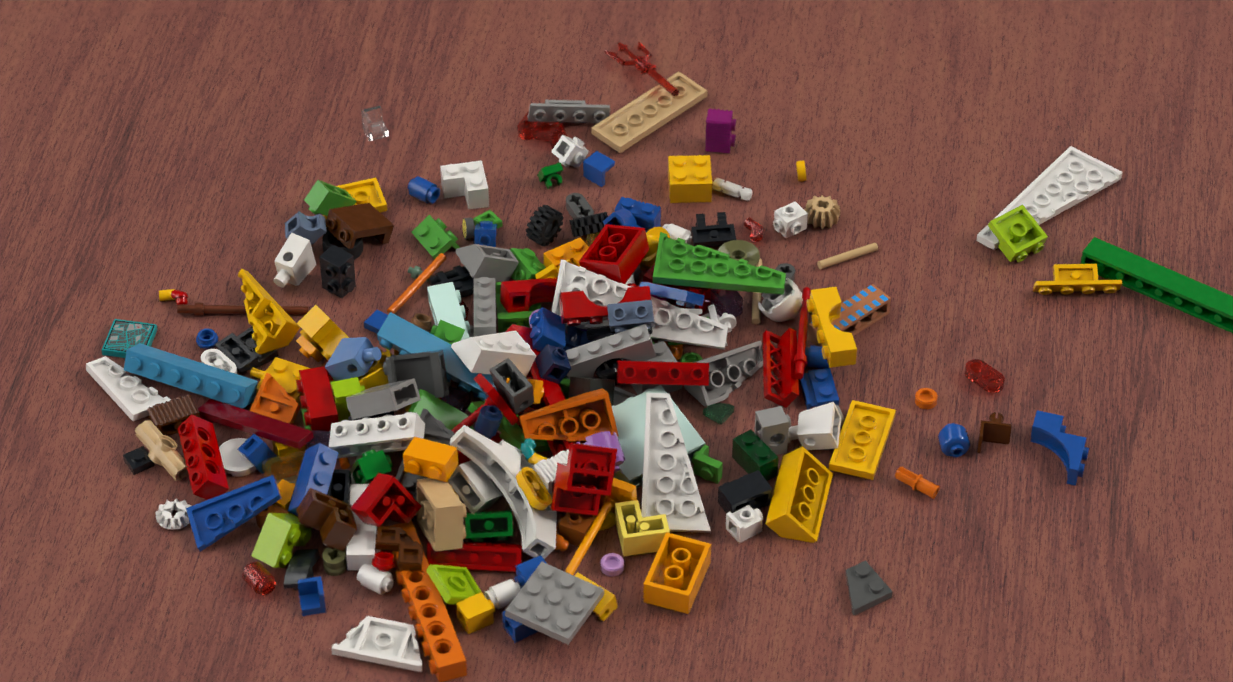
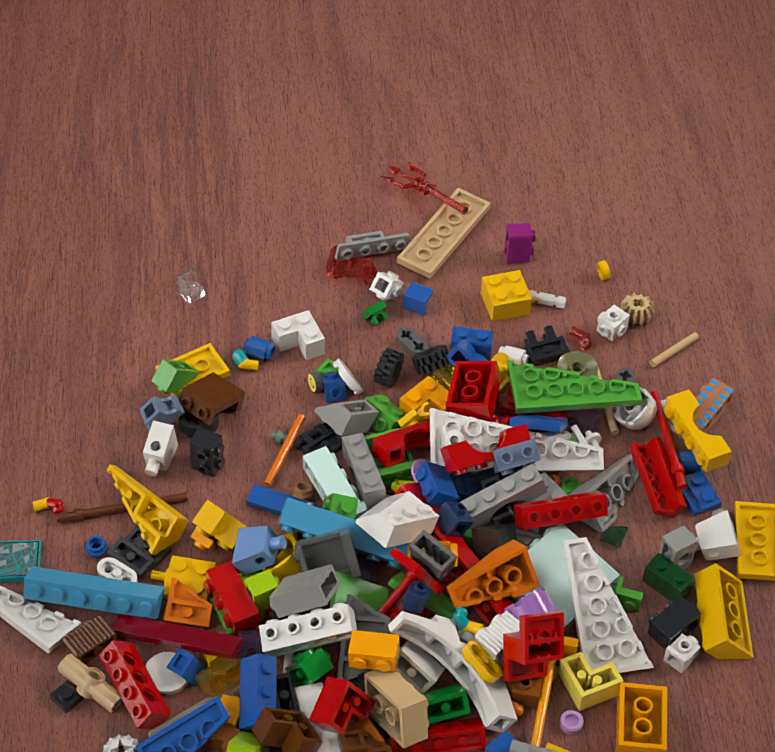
camera: 15 degrees left, 5 degrees up
(404, 201) = (243, 362): none -> arm
(433, 236) = (285, 397): bright green bracket -> none
(500, 227) = (348, 377): none -> white tile

